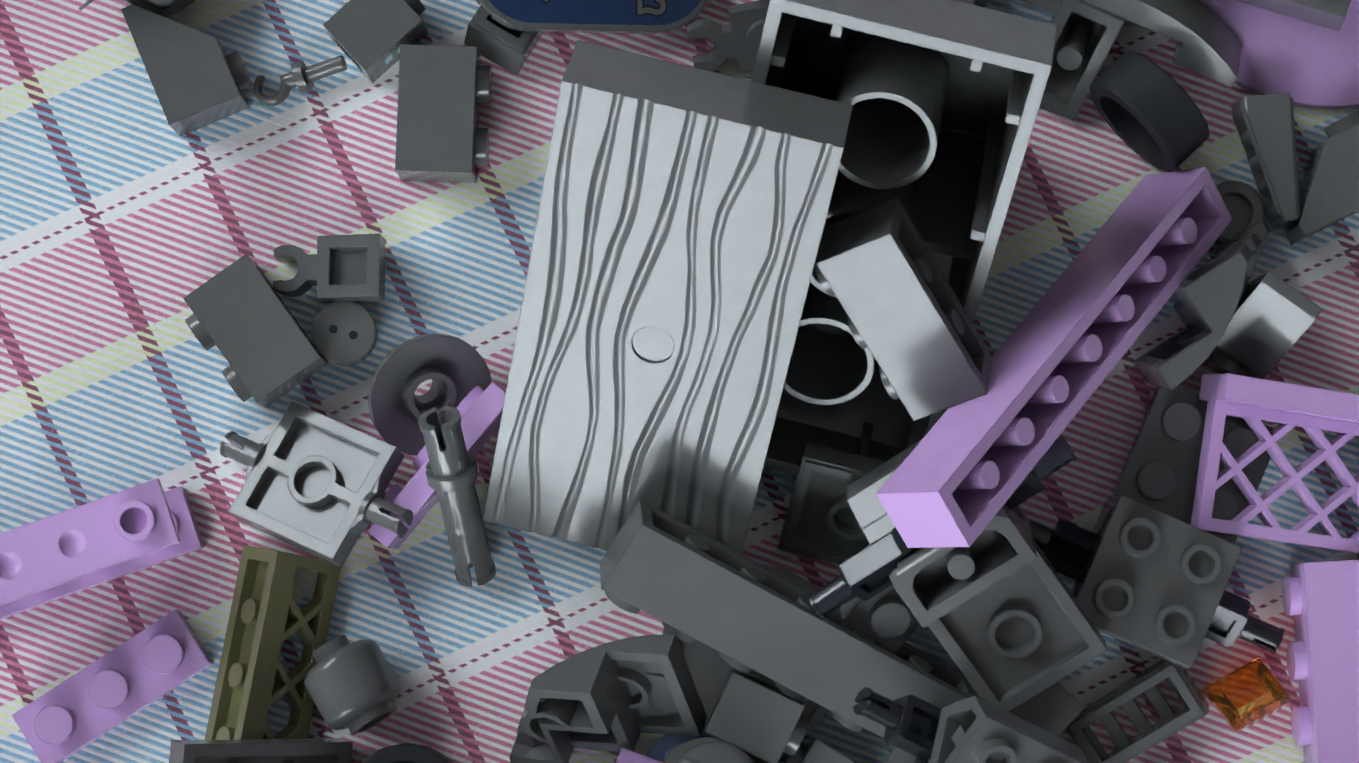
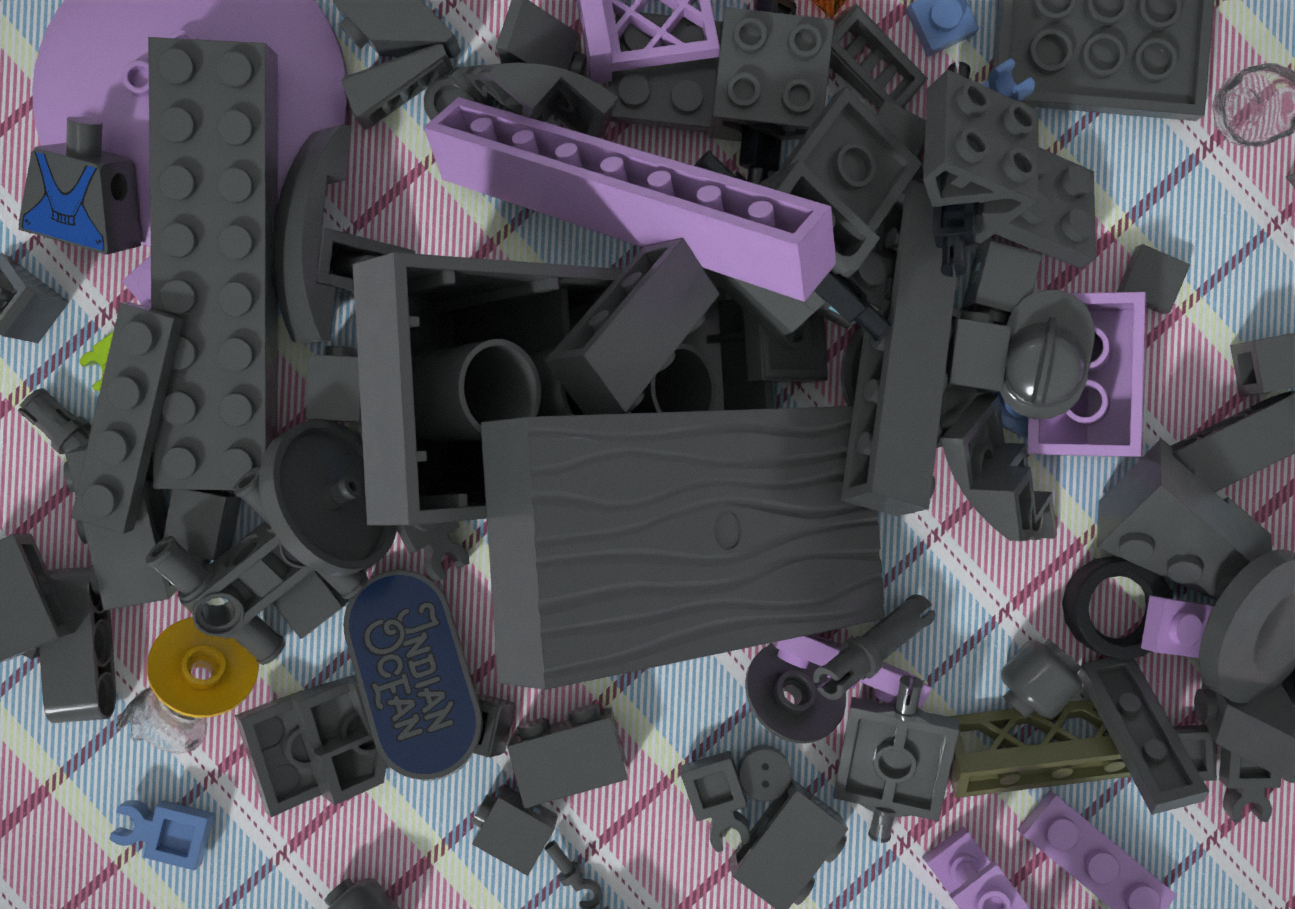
camera: 105 degrees left, 5 degrees up
(1149, 111) = (390, 188): black tyre -> none

